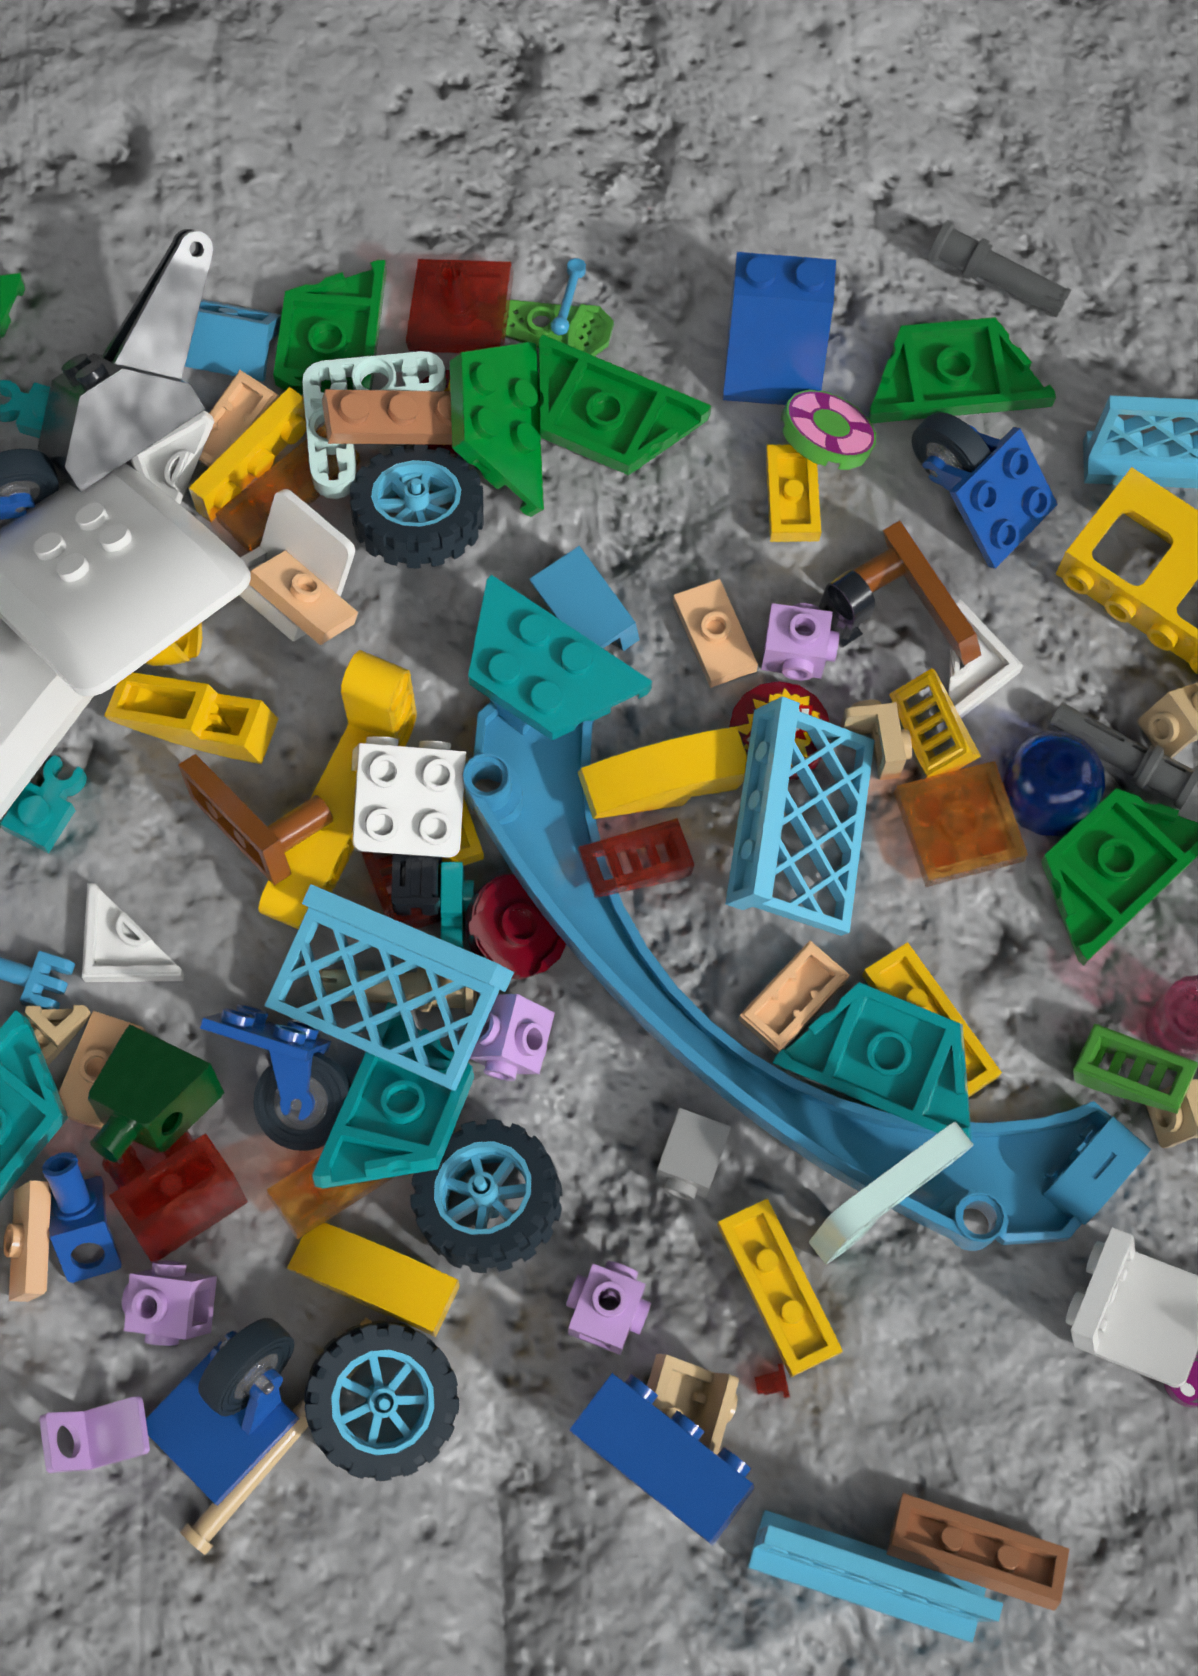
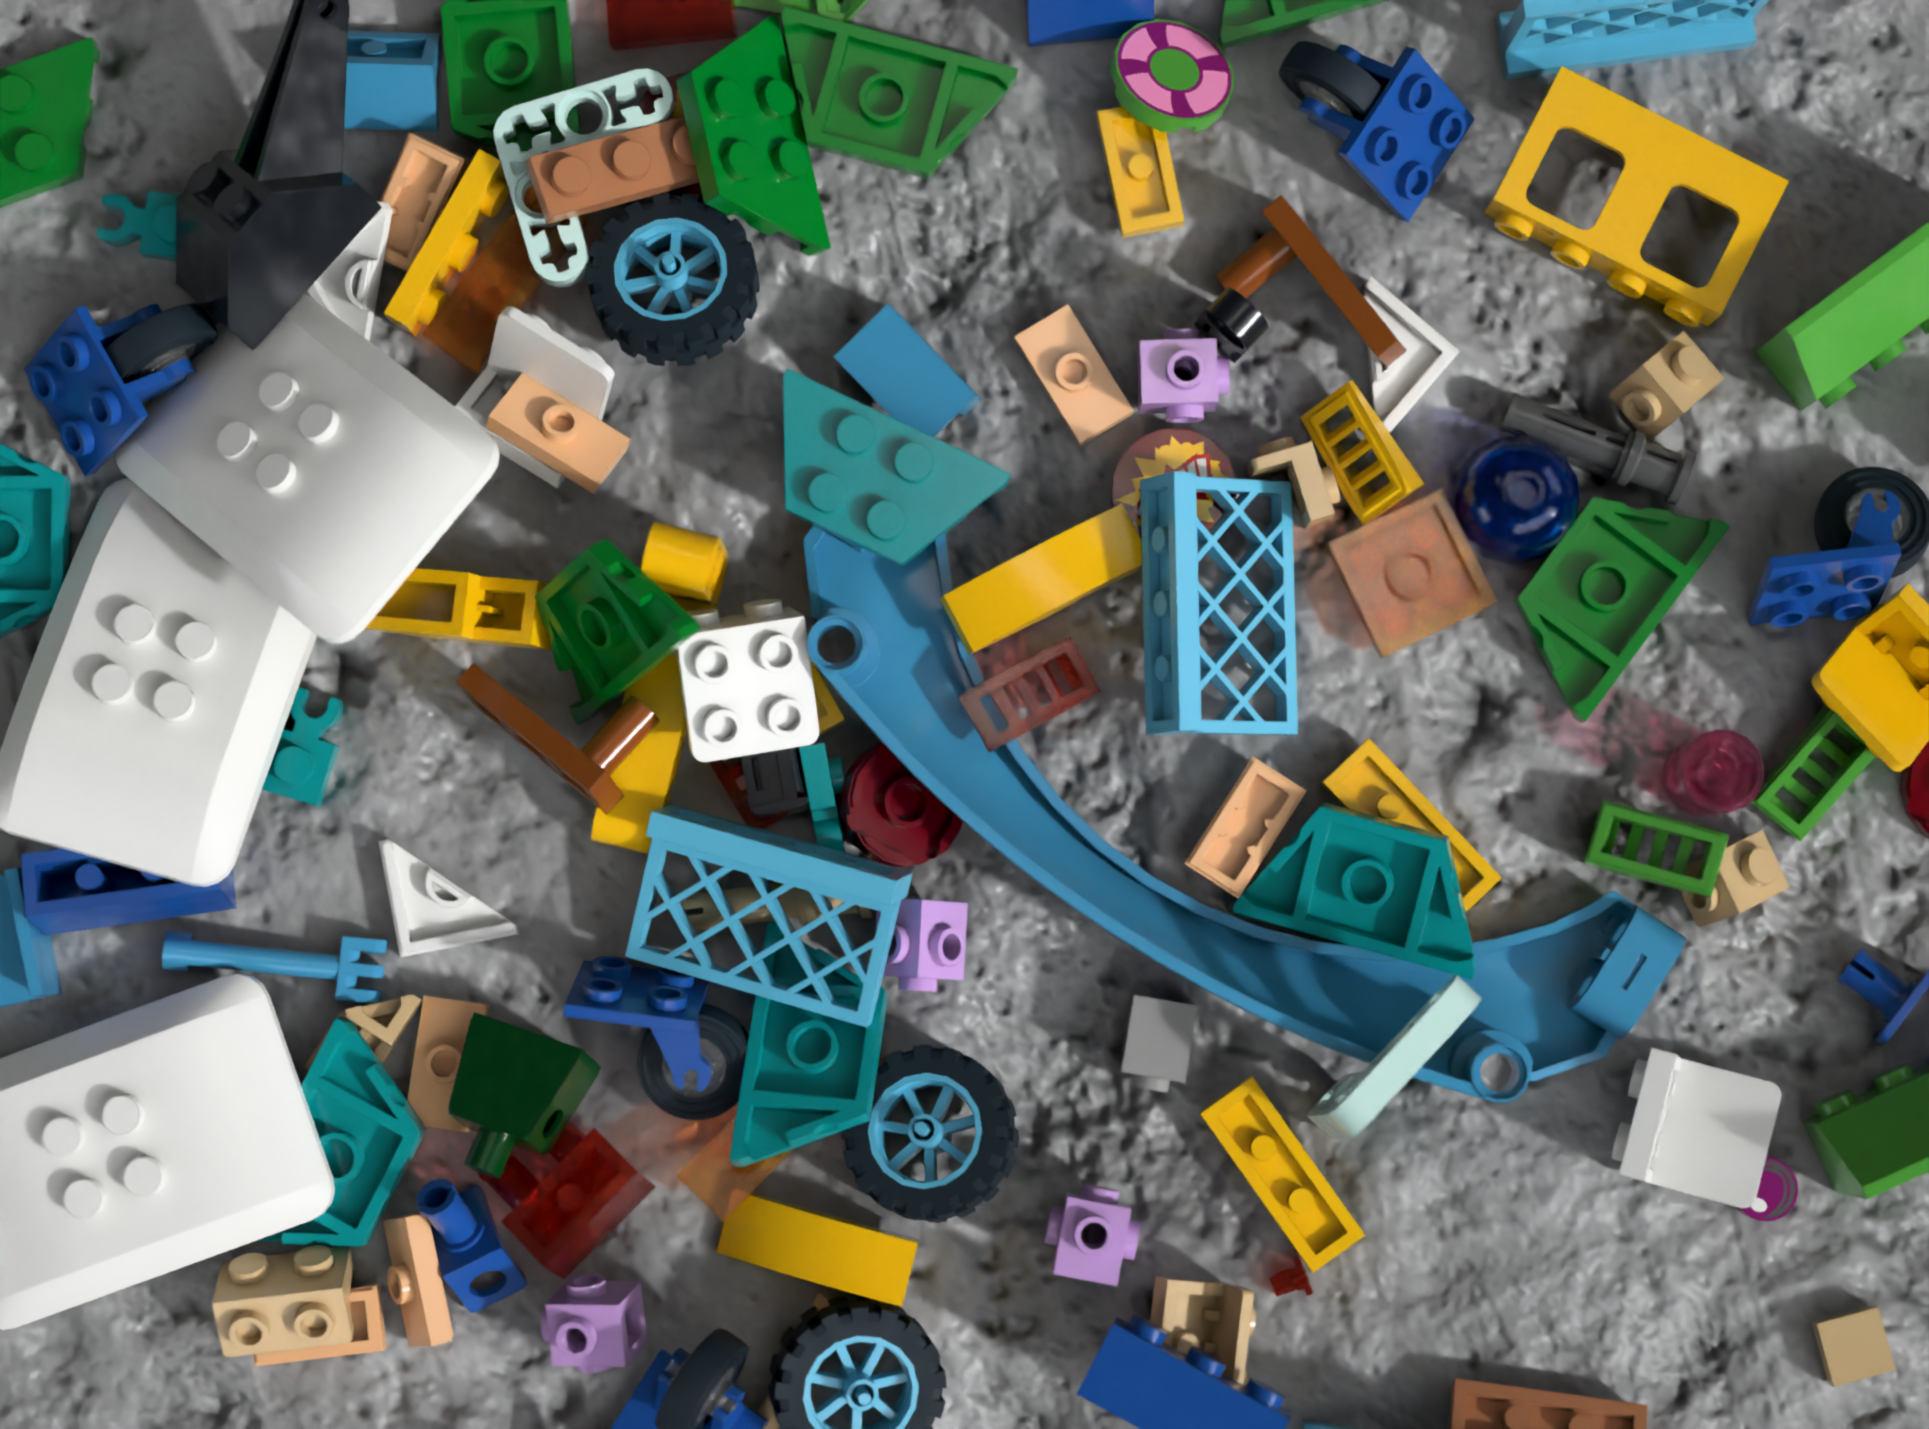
camera: 10 degrees left, 15 degrees up
(308, 732) = (609, 625): none -> green wing

